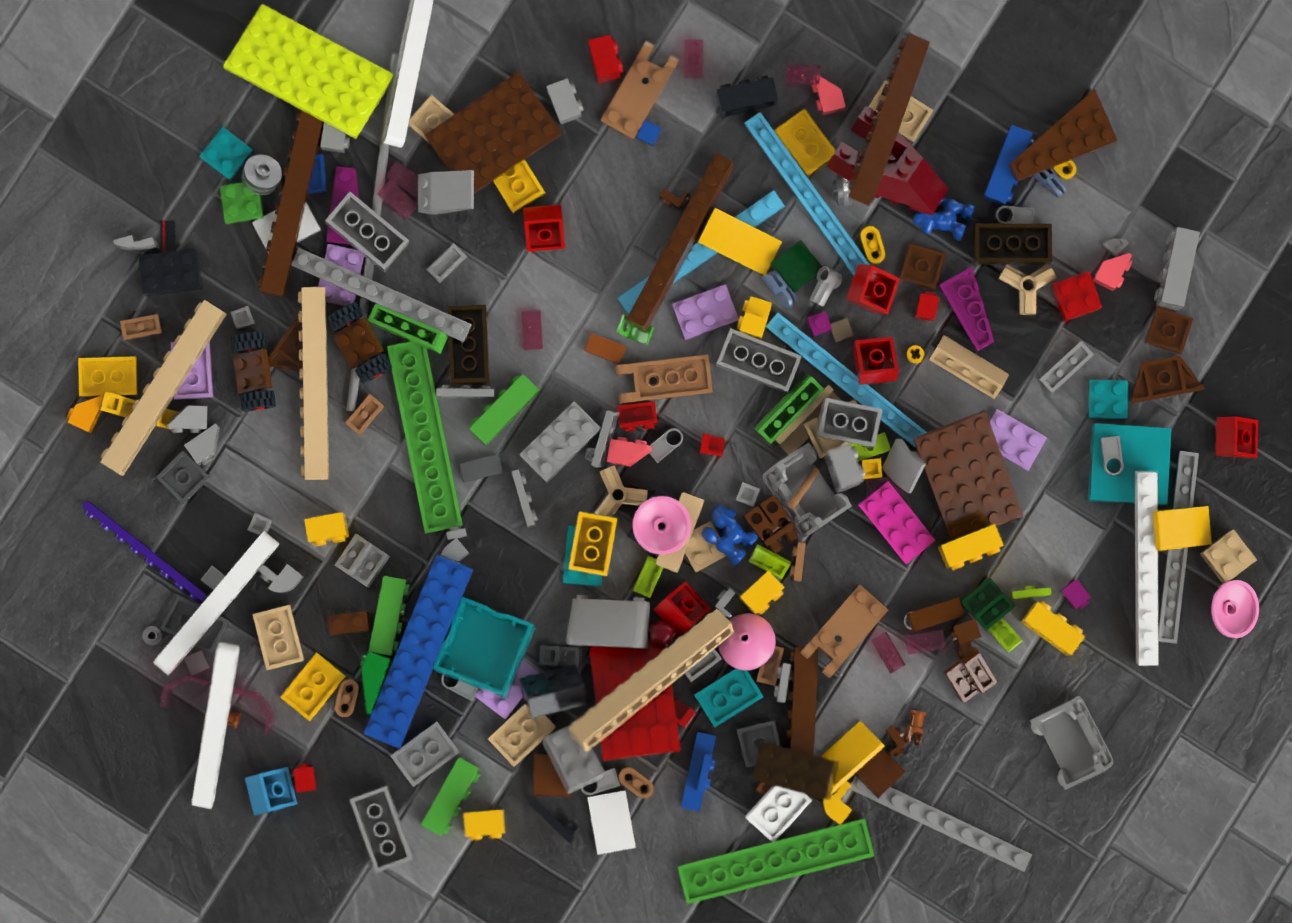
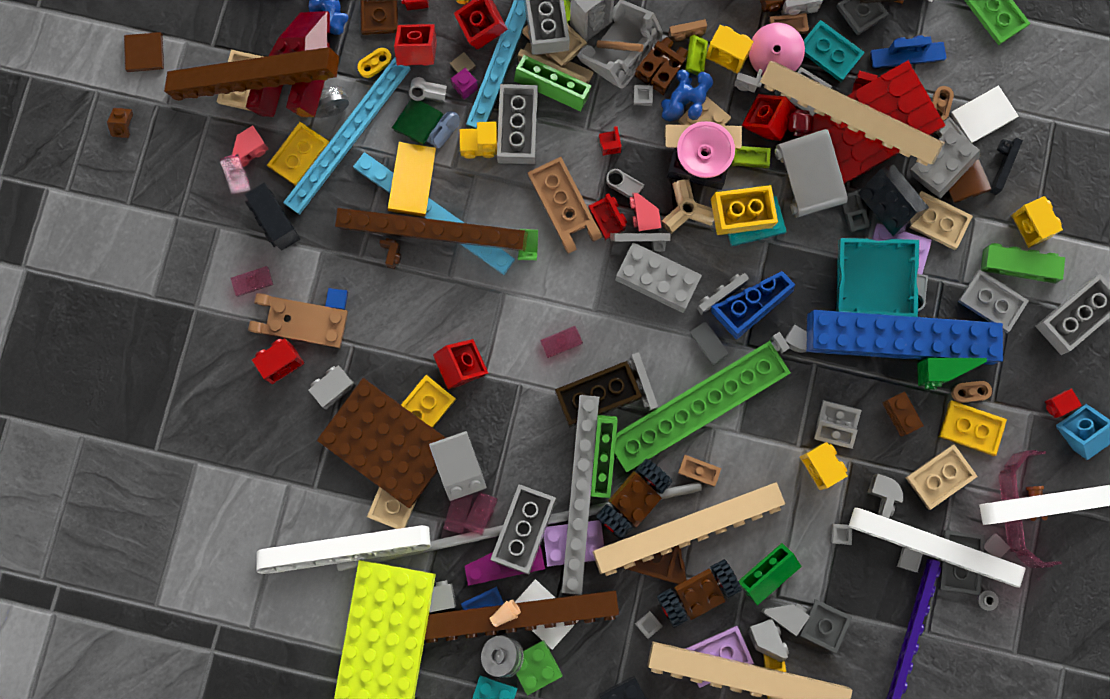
camera: 105 degrees left, 5 degrees down
(247, 442) = (769, 574): none -> green brick
(298, 191) = (505, 613): none -> light nougat cone
(388, 615) = (880, 380): bright green brick -> none
(446, 263) = (526, 444): light grey plate -> none
(501, 518) = (748, 307): none -> blue wedge
(507, 406) = (646, 340): bright green brick -> none
(605, 348) = (554, 268): dark orange tile -> none
(705, 312) = (488, 190): lavender plate -> none
(963, 25) = (144, 52): none -> reddish brown tile

